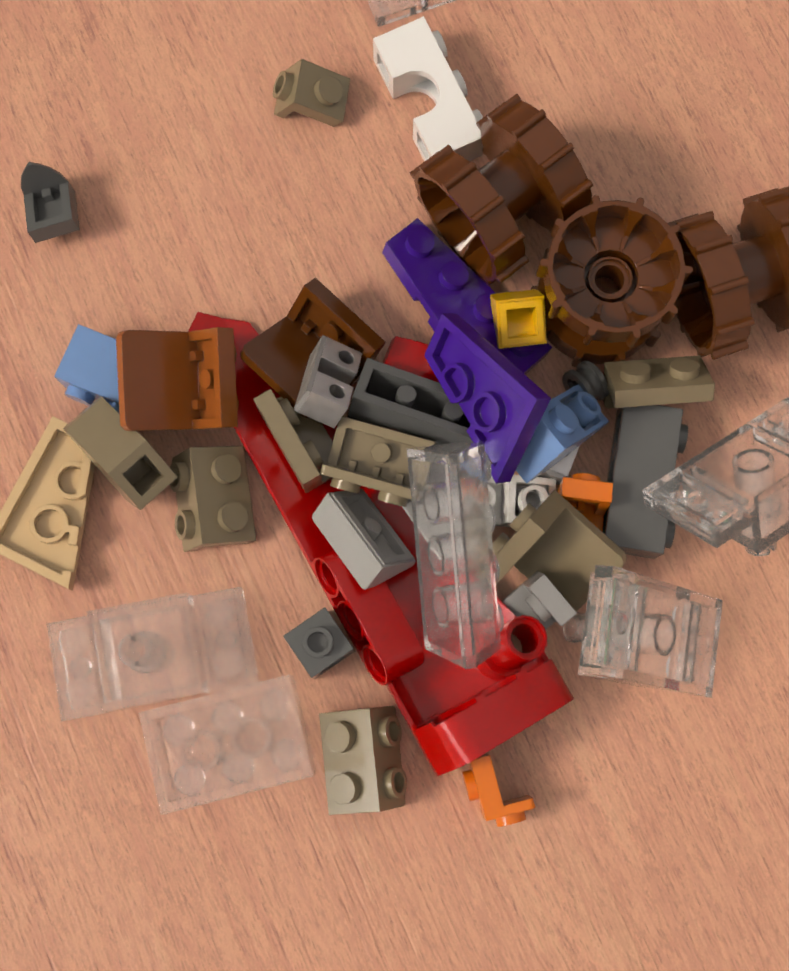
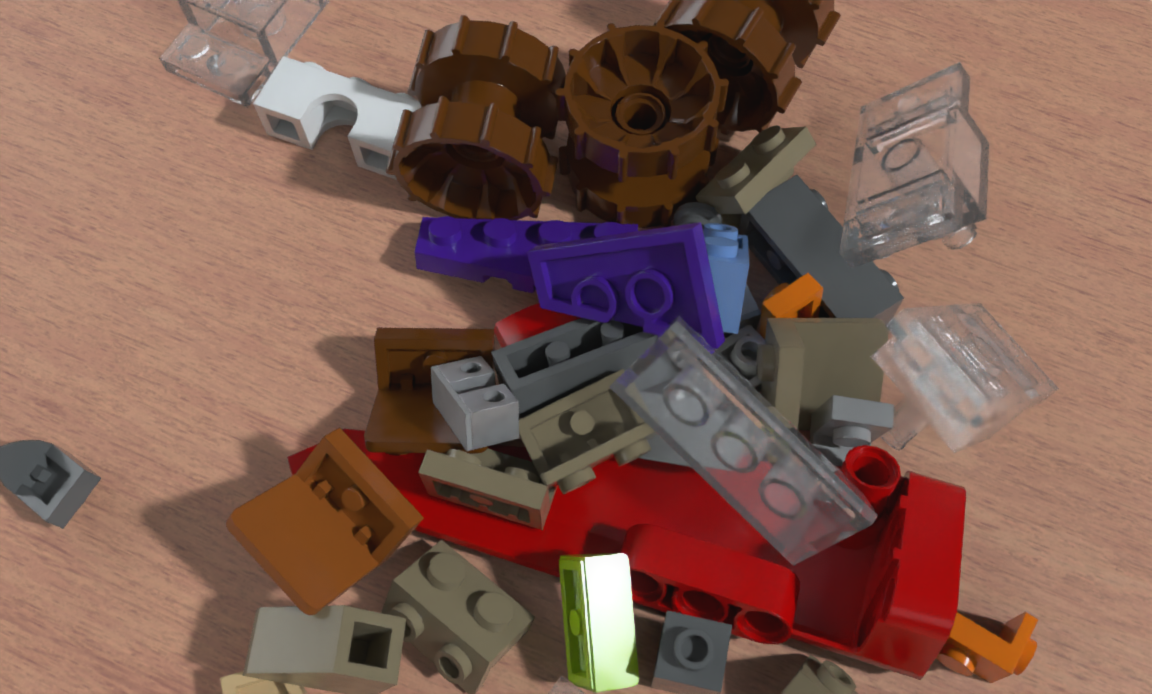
camera: 40 degrees left, 15 degrees down
(90, 368) = (223, 591): medium blue slope -> none
(286, 576) = (599, 621): none -> slope
(311, 92) = (232, 191): dark tan bracket -> none
(362, 537) = (637, 517): light grey slope -> none
(519, 318) = (591, 212): yellow slope -> none

